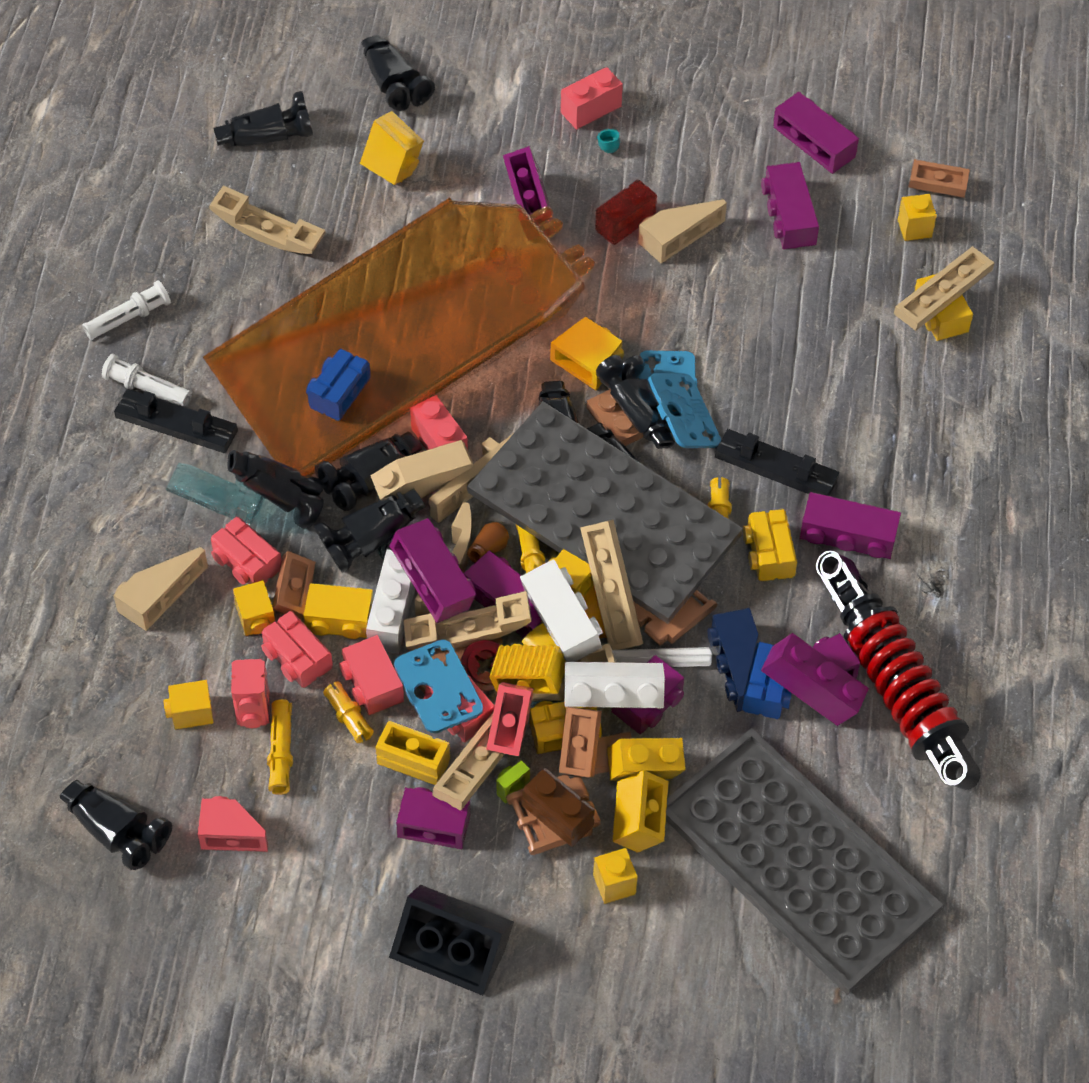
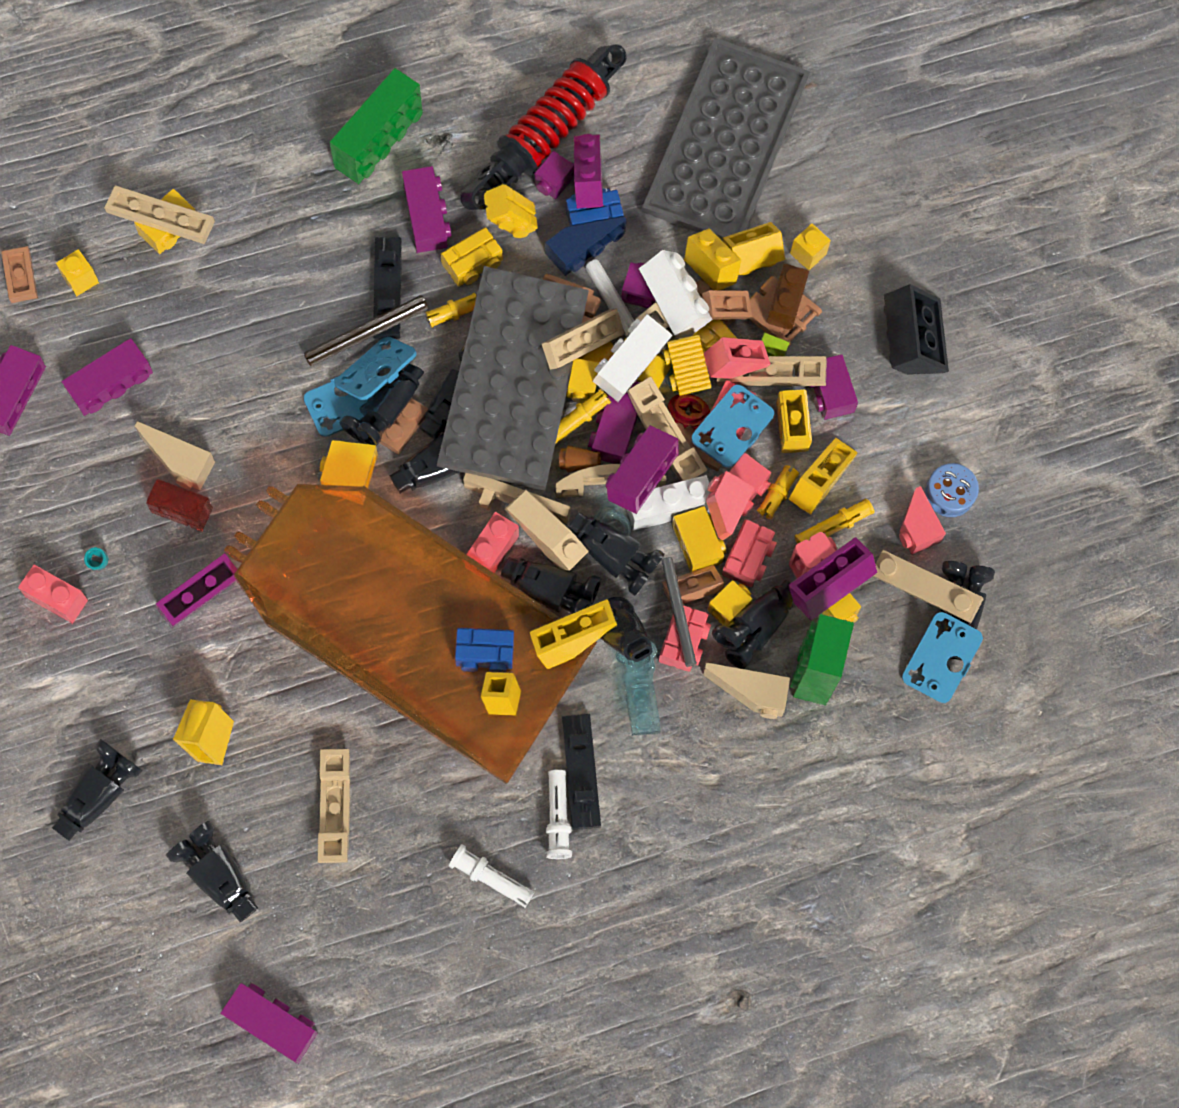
camera: 120 degrees left, 15 degrees up
(80, 769) = (936, 652): none -> dark azure axle
(114, 115) = (270, 1021): none -> magenta brick
(130, 626) = (821, 659): none -> green brick
(154, 791) = (927, 586): none -> tan plate
(209, 682) = (833, 578): none -> magenta brick
(217, 615) = (754, 625): none -> black piece
(247, 880) = (952, 490): none -> medium blue head
(269, 545) = (679, 613): none -> dark grey bar
(284, 372) = (500, 693): none -> yellow brick
(303, 440) = (572, 634): none -> yellow slope
(340, 761) = (822, 476): none -> yellow slope
(353, 629) = (727, 502): none -> coral slope
(731, 420) = (366, 330): none -> dark brown axle
(801, 588) = (510, 211): none -> yellow brick
(968, 511) = (377, 126): none -> green brick

